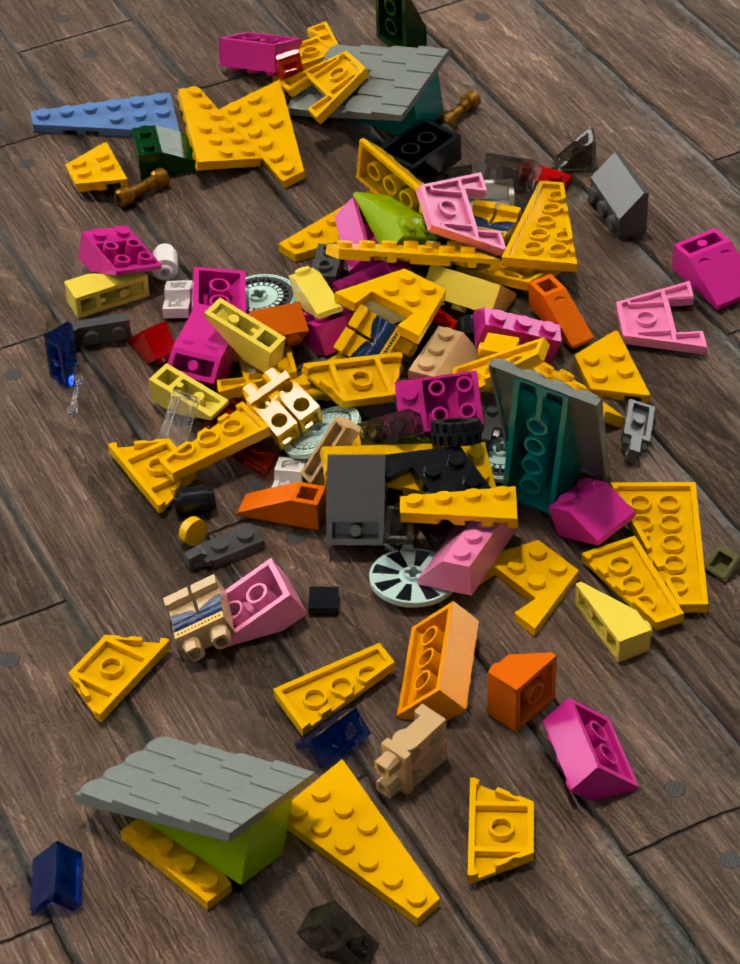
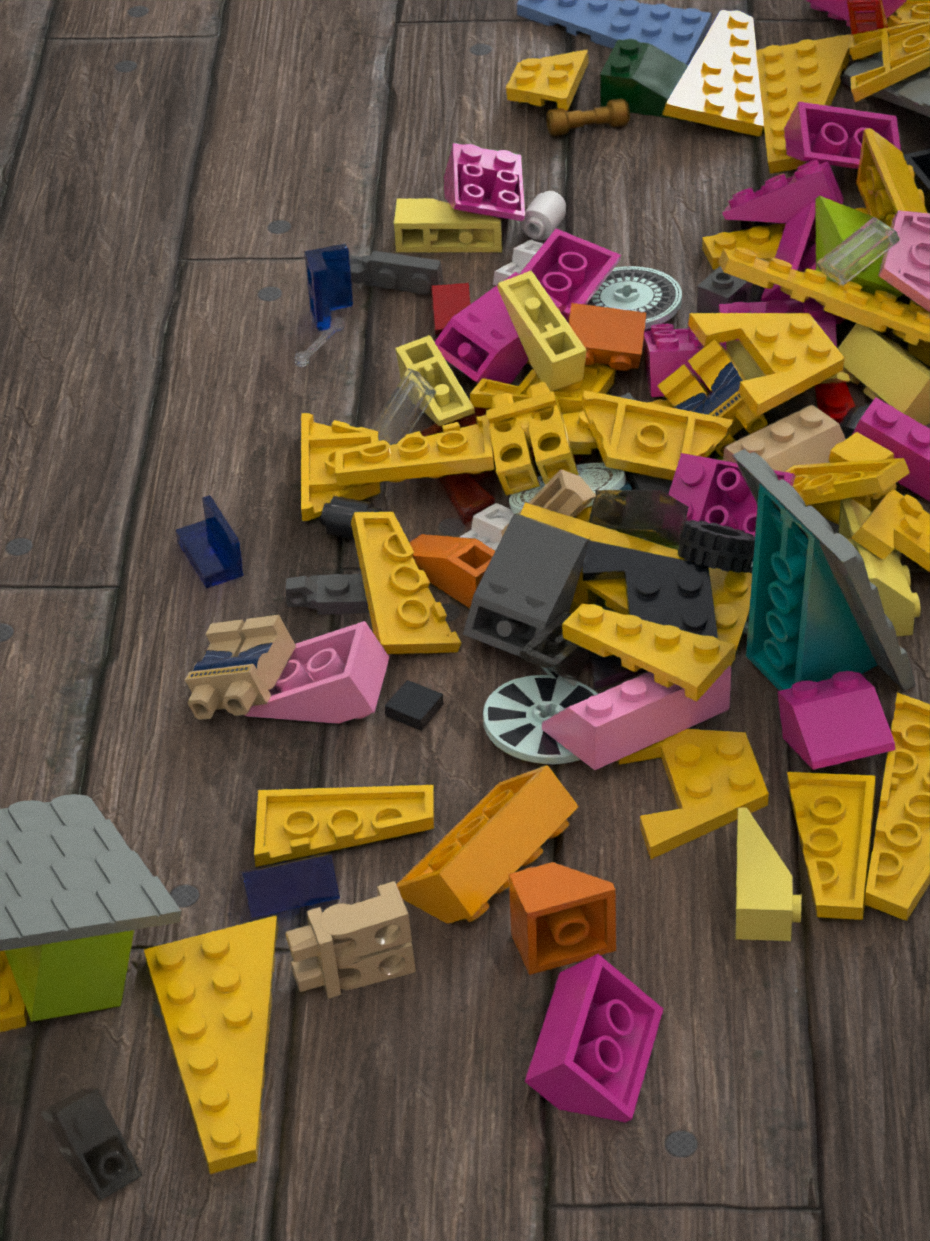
camera: 30 degrees right, 0 degrees up
(114, 670) = (98, 691): yellow wing -> none
(115, 549) = (212, 546): none -> clear blue panel
(193, 531) = (320, 556): yellow tile -> none
(264, 531) = (396, 591): none -> yellow wing
(313, 293) = (679, 297): light yellow slope -> none
(320, 200) = (785, 197): none -> dark pink slope
(324, 150) = (834, 133): none -> dark pink slope
(410, 219) = (858, 251): none -> clear tile
(498, 831) = (395, 1096): yellow wing -> none

